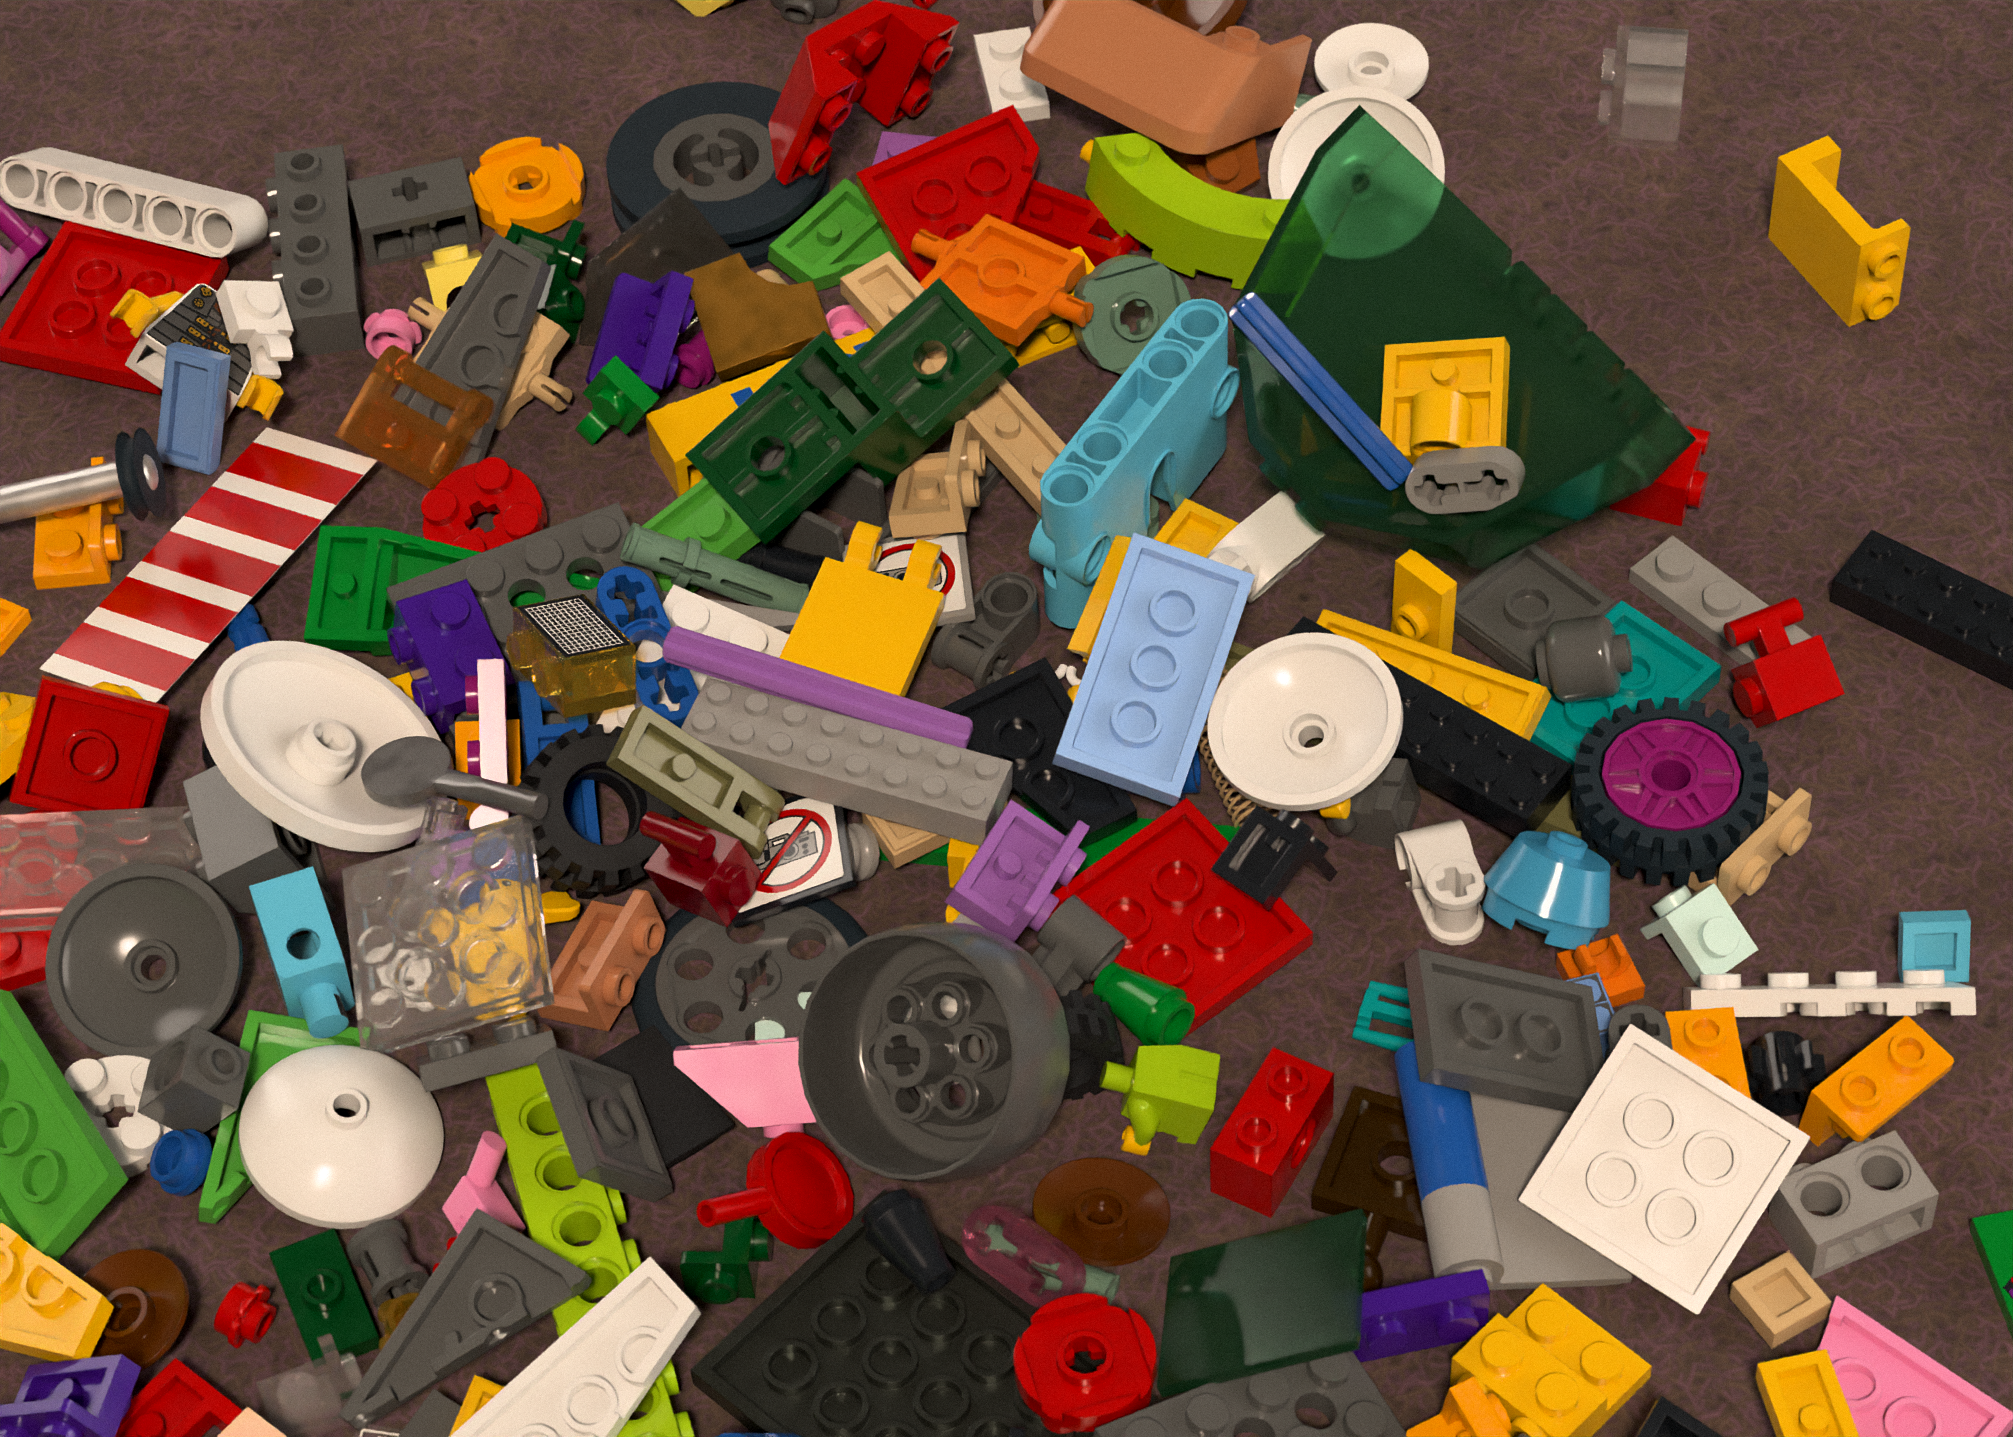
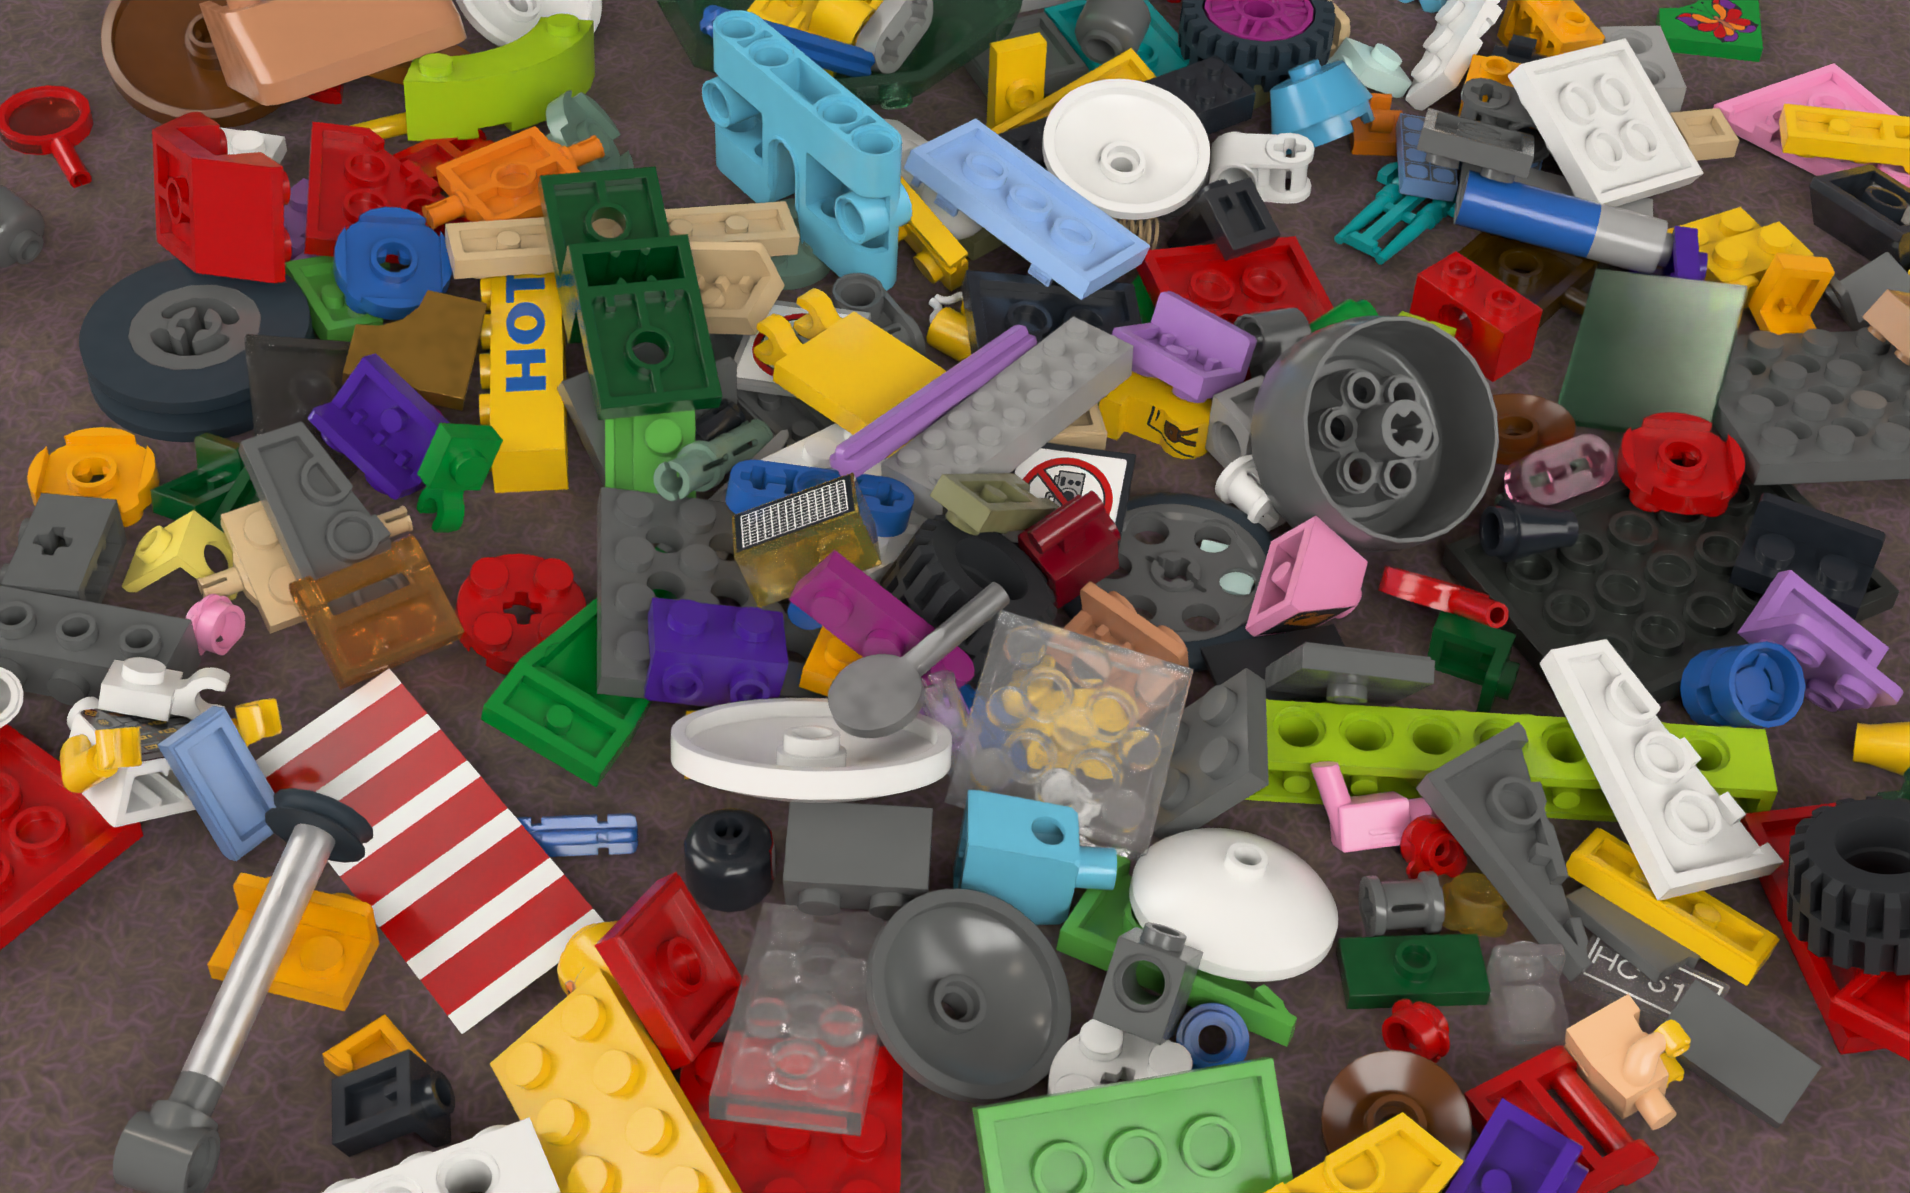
camera: 75 degrees left, 5 degrees down
(844, 218) = (365, 246): none -> blue plate

